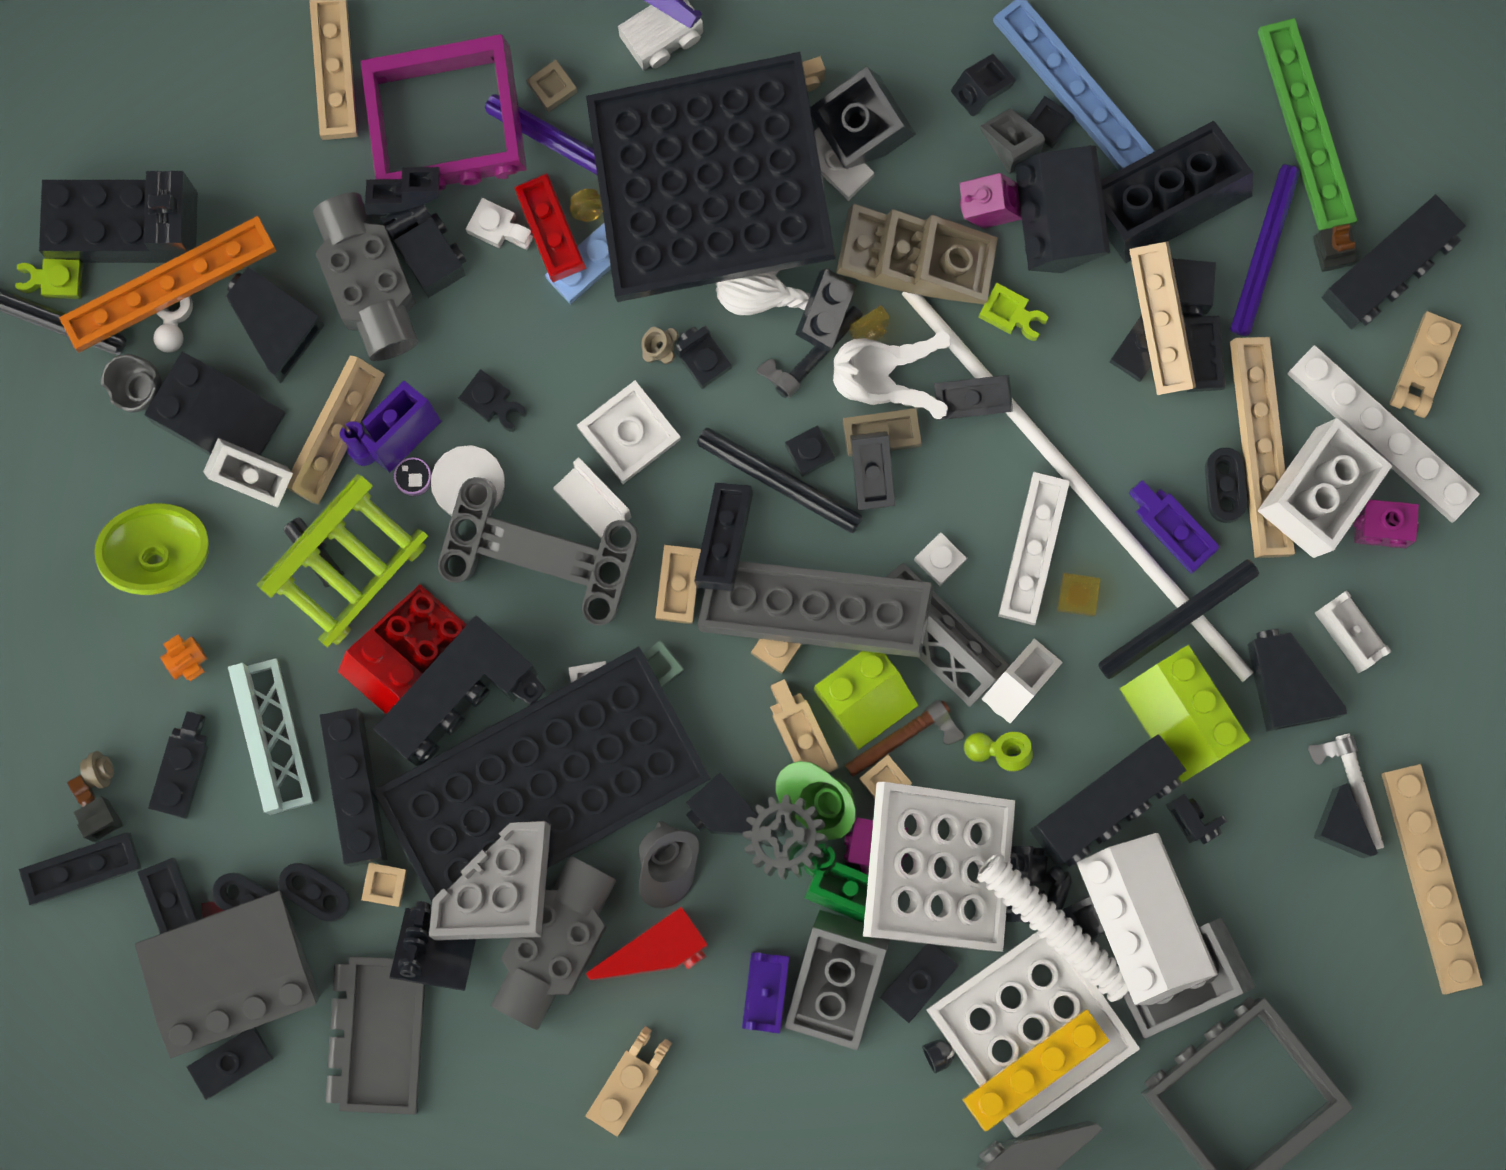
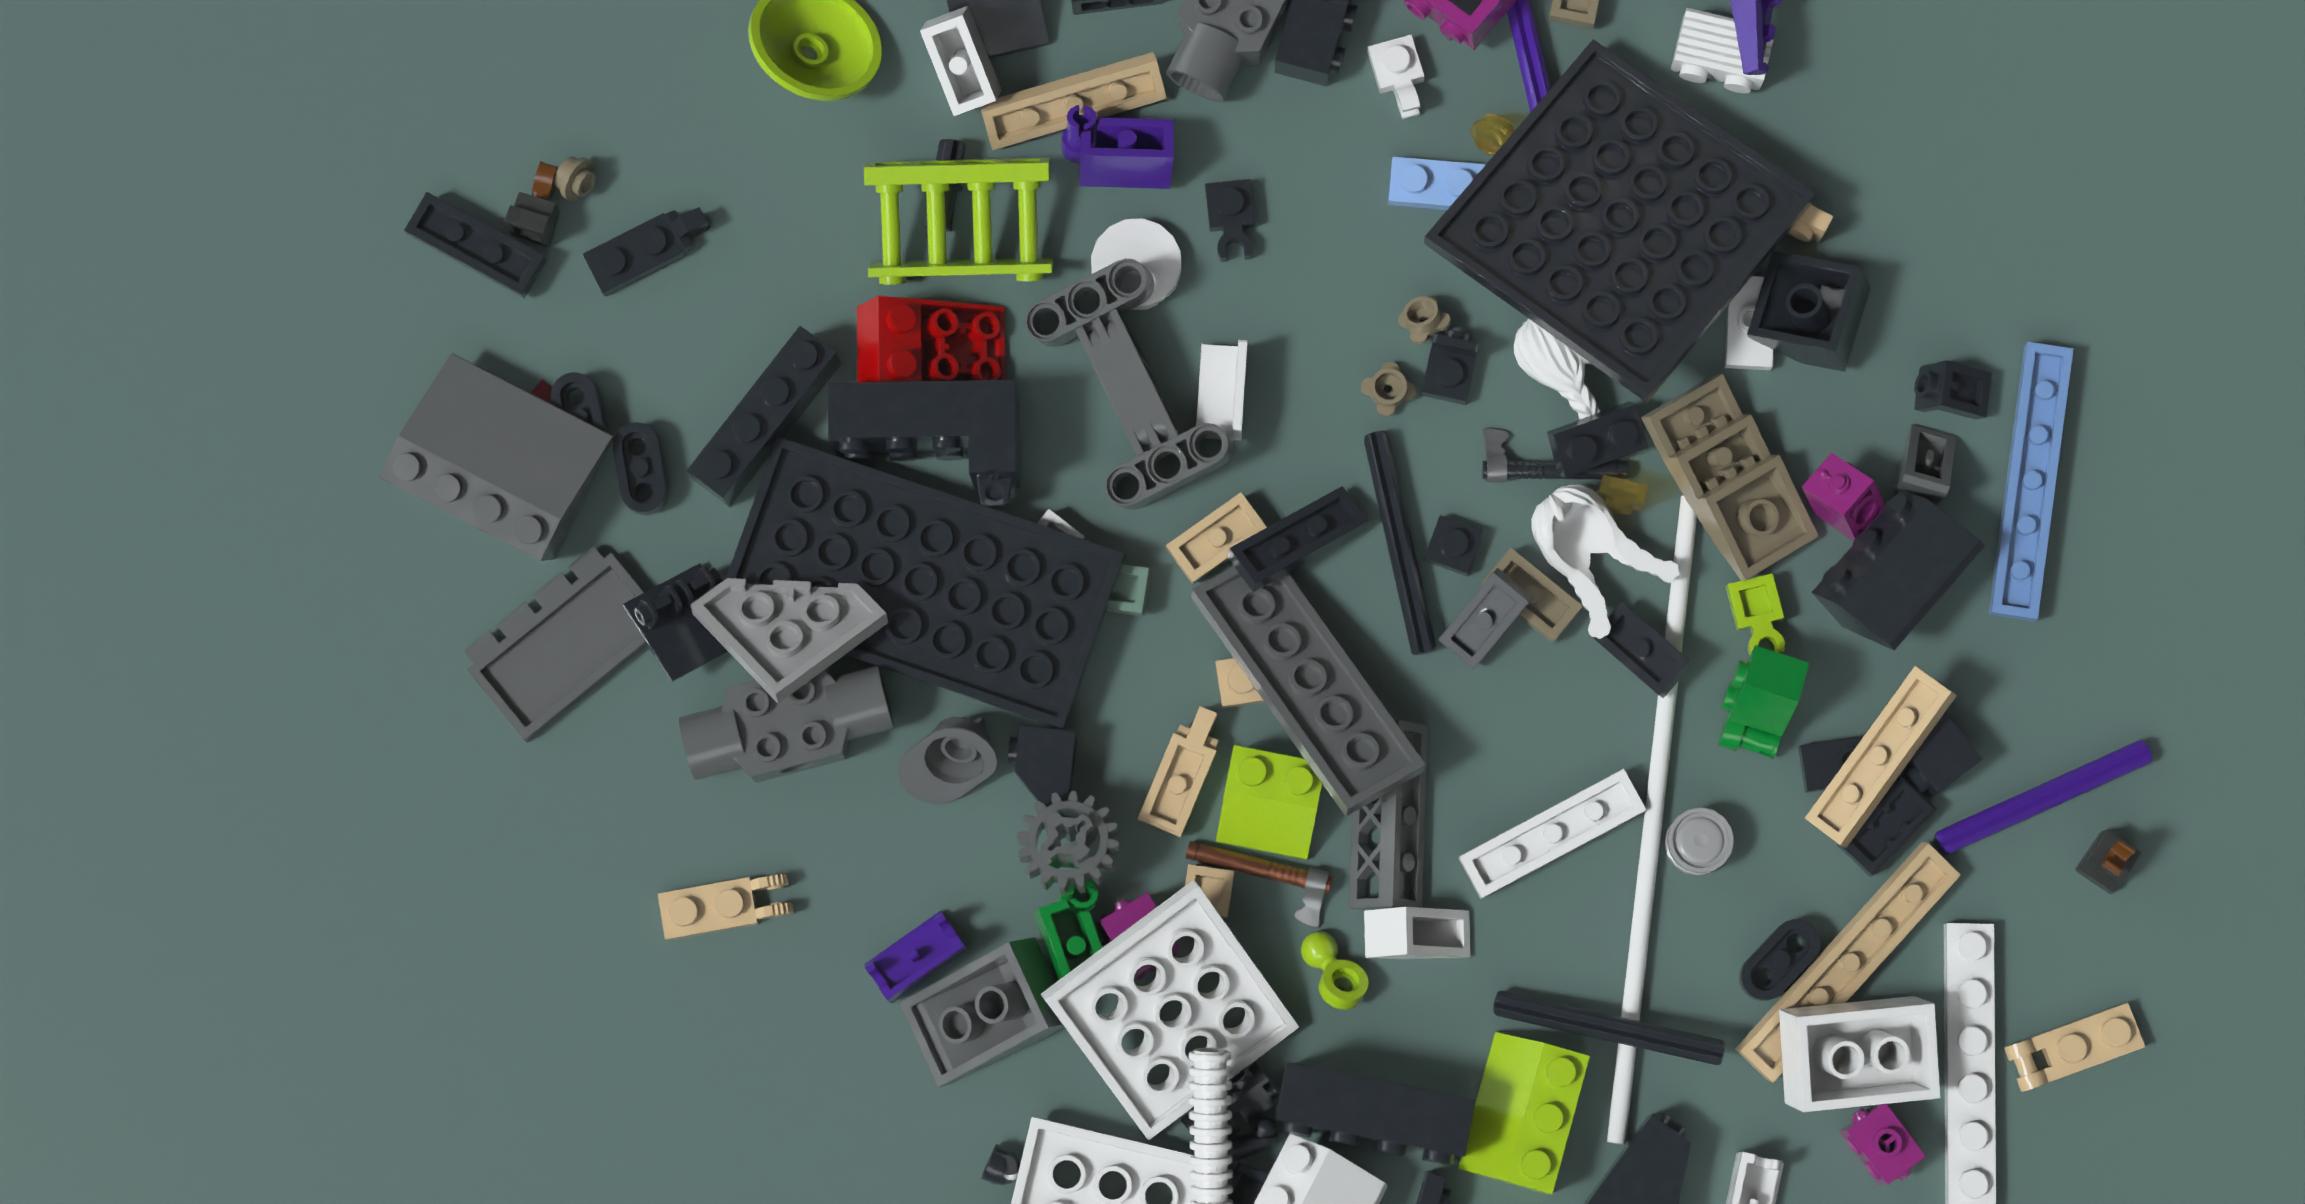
camera: 55 degrees right, 0 degrees up
(167, 895) = (521, 342): black plate -> none
(183, 657) = (744, 160): orange gear -> none
(230, 1063) = (423, 534): black plate -> none
(257, 740) = (731, 290): light aqua fence -> none
(384, 885) = (703, 525): tan plate -> none
(412, 476) = (1095, 210): tile -> none
(550, 228) = (1439, 120): red tile -> none
(629, 432) = (1316, 365): white plate -> none
(660, 948) = (874, 824): red slope -> none
(676, 394) = (1388, 375): none -> dark tan plate
(819, 789) = (1144, 850): bright green piece -> none
(919, 982) = (1051, 1088): black plate -> none
(940, 559) = (1463, 756): white plate -> none
(1050, 120) = (1976, 484): black tile -> none
(1068, 356) = (1761, 701): none -> green hinge
(1078, 594) = (1546, 914): clear yellow plate -> none
(1115, 468) = (1699, 841): none -> light grey wheel
(1173, 526) = (1694, 947): dark purple hinge -> none
(1174, 189) = (2016, 657): black slope -> none
(1307, 124) = (2203, 728): bright green plate -> none
(1393, 262) = (2145, 929): black brick -> none

